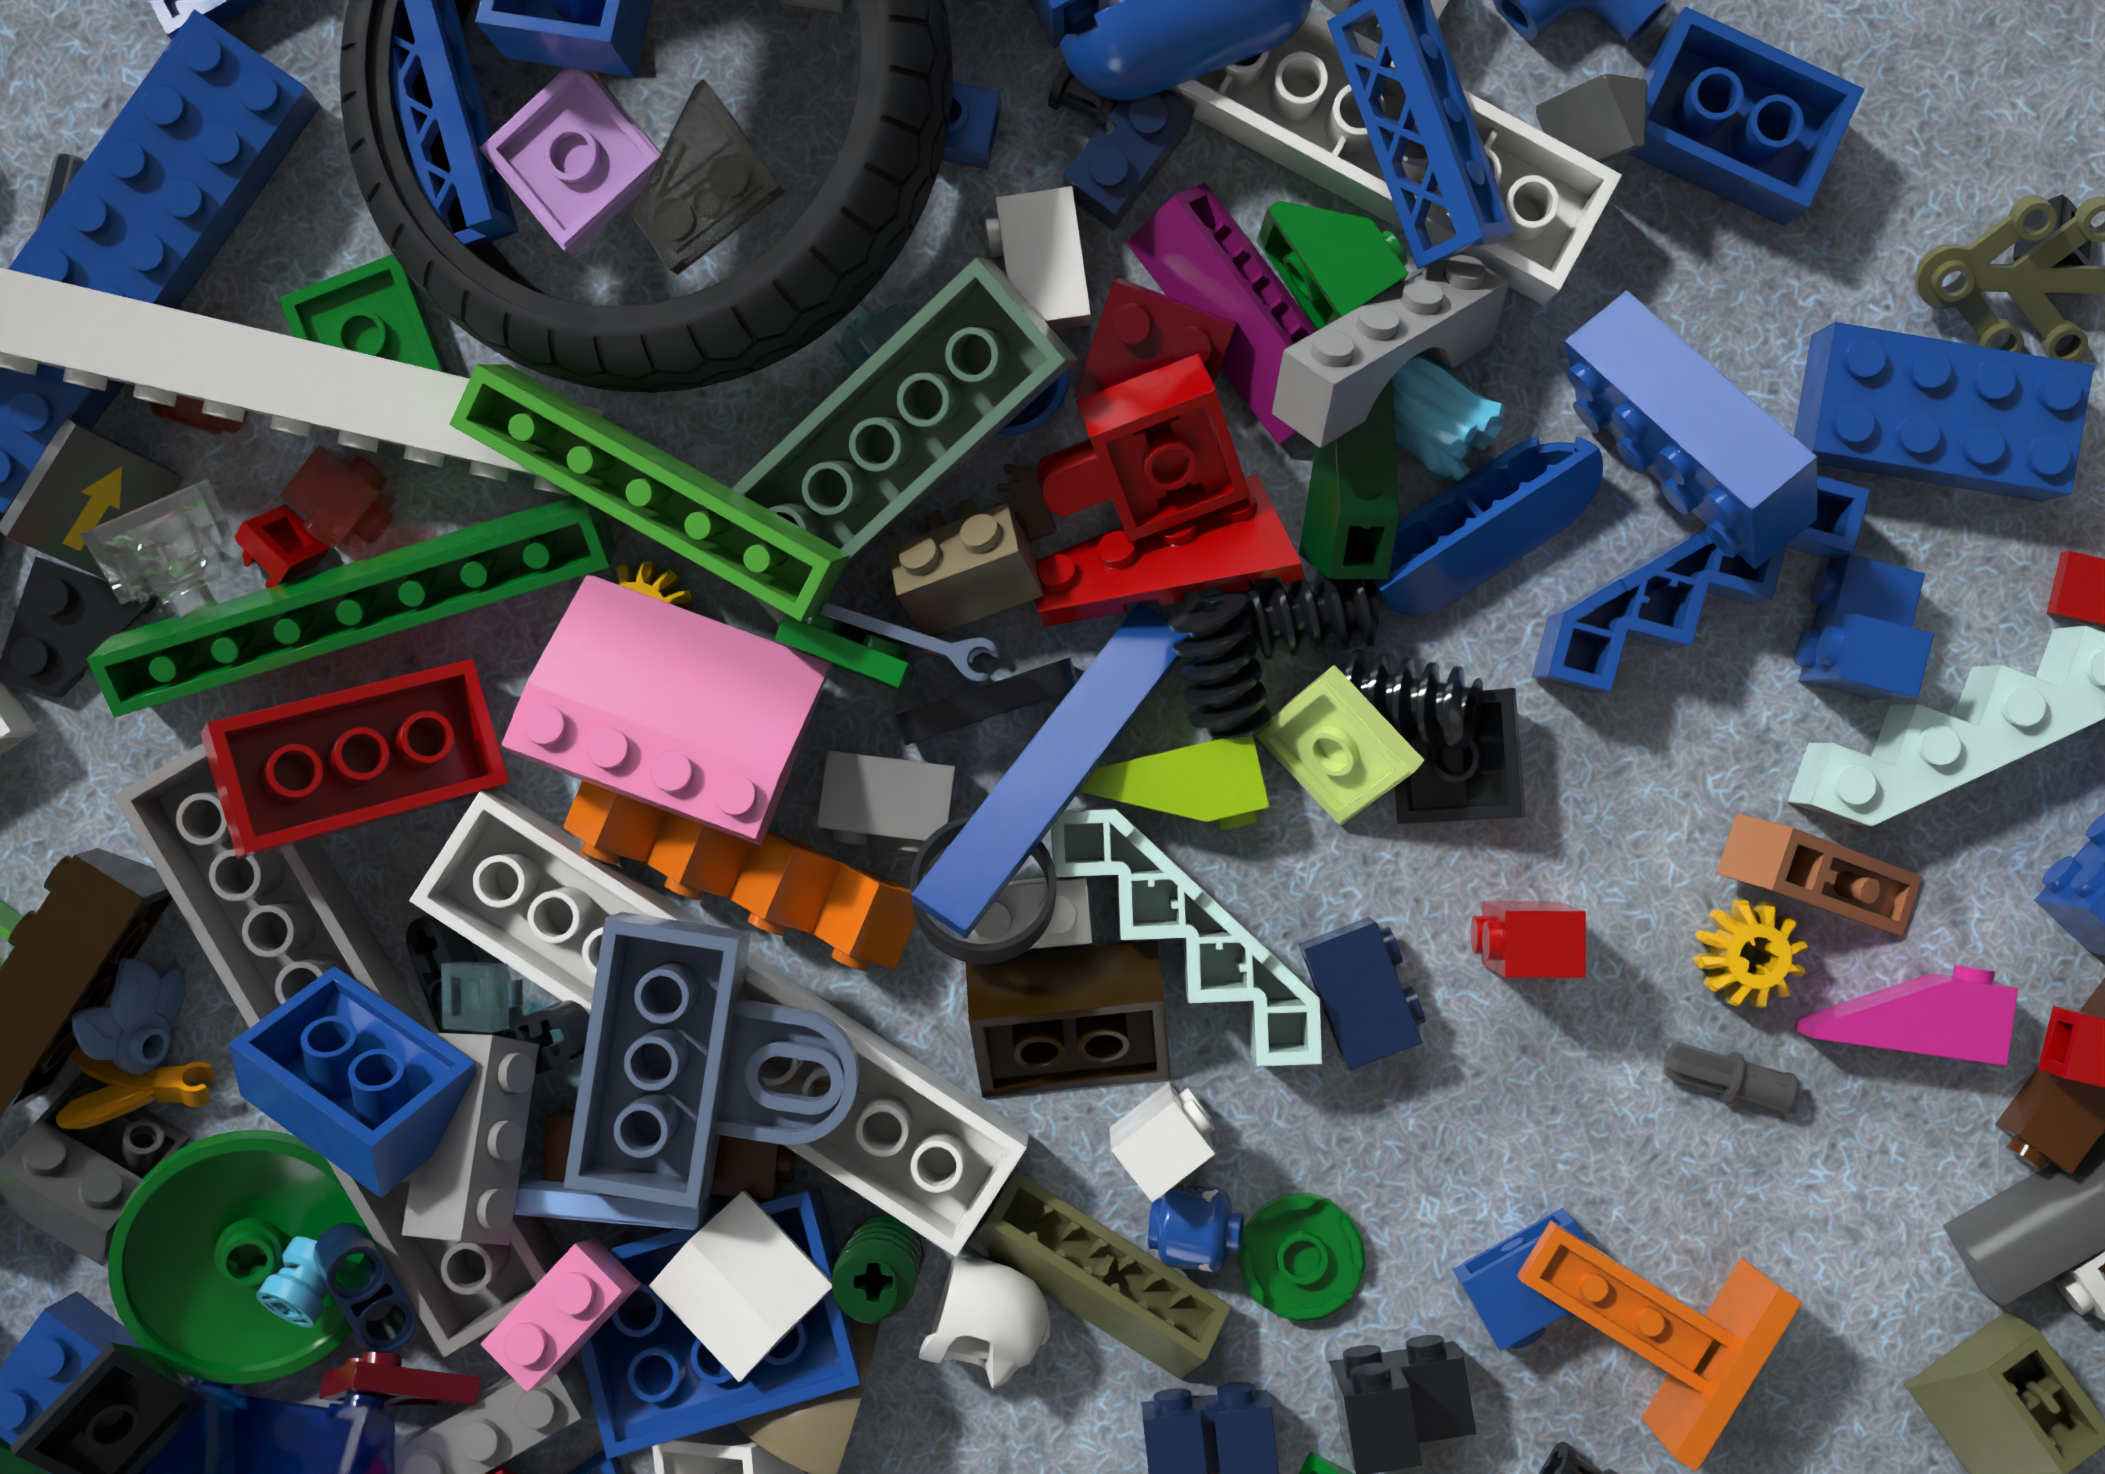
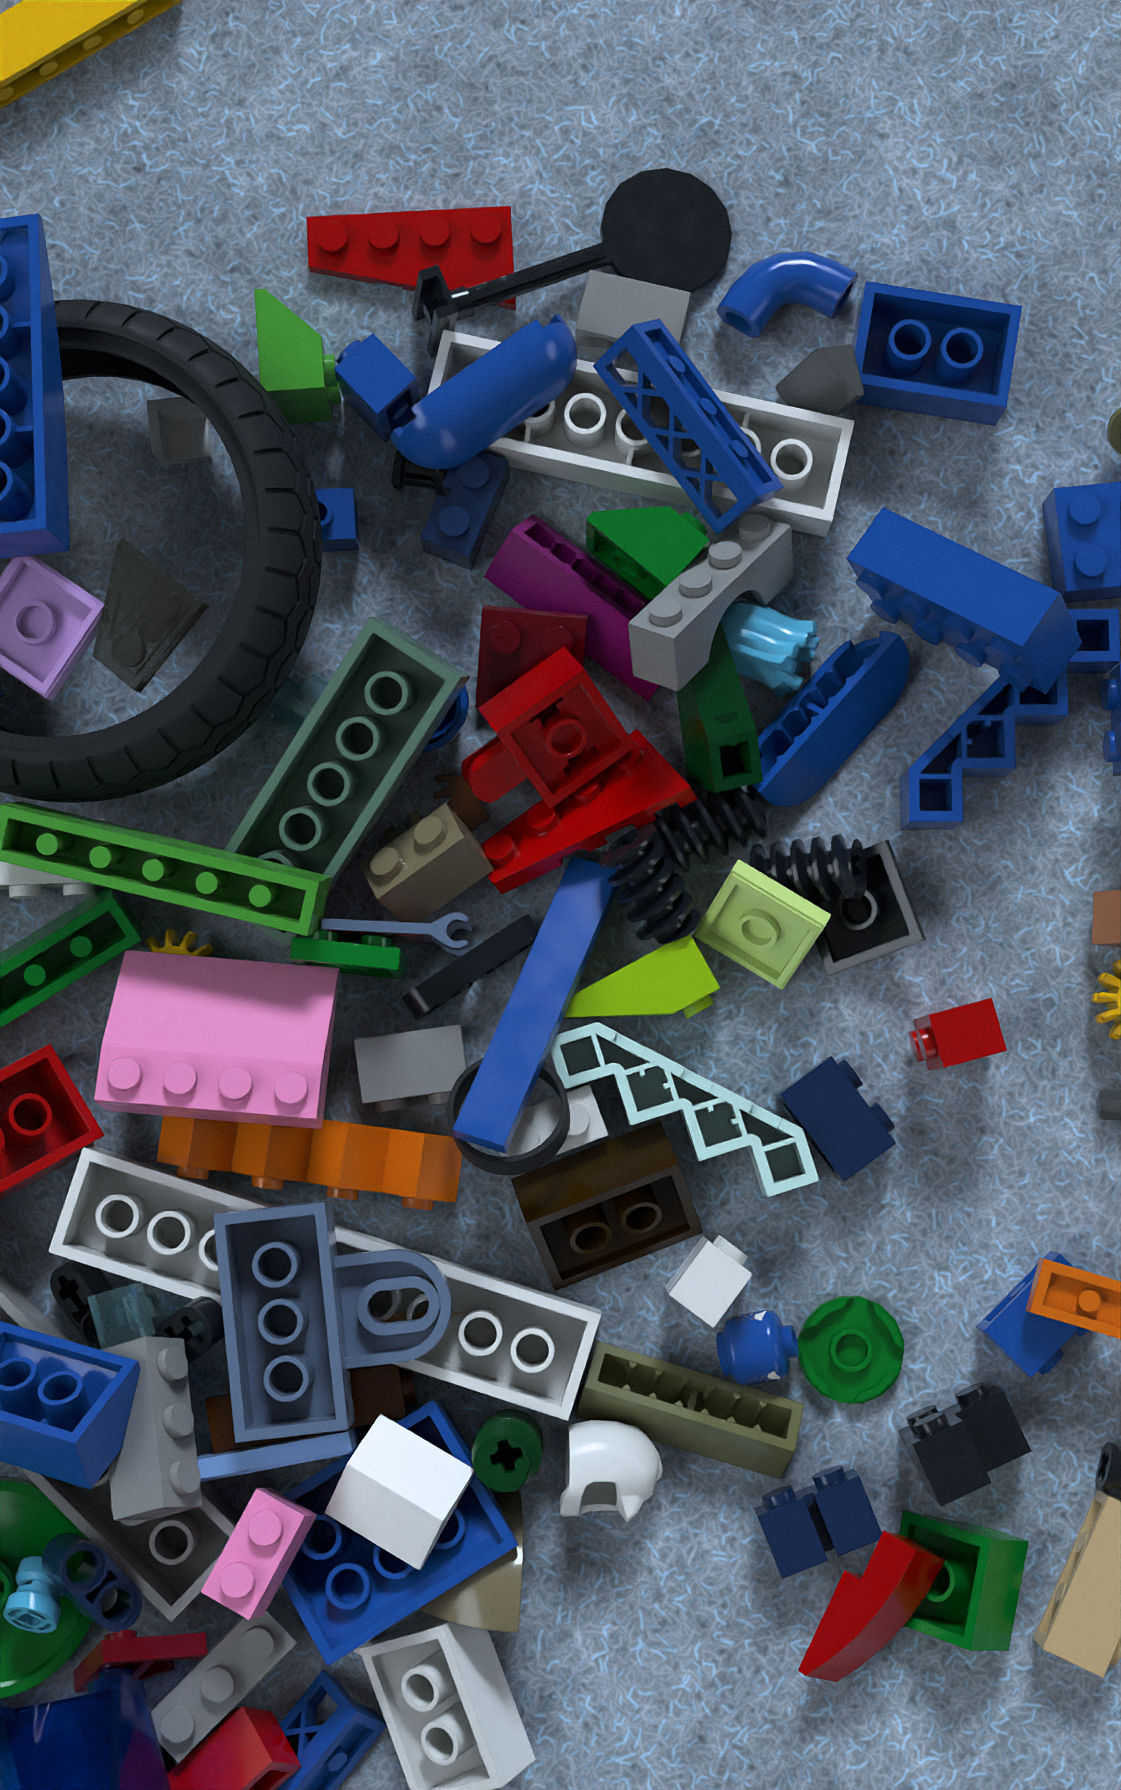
camera: 10 degrees left, 5 degrees down
(1043, 254) = (421, 602): white brick -> none

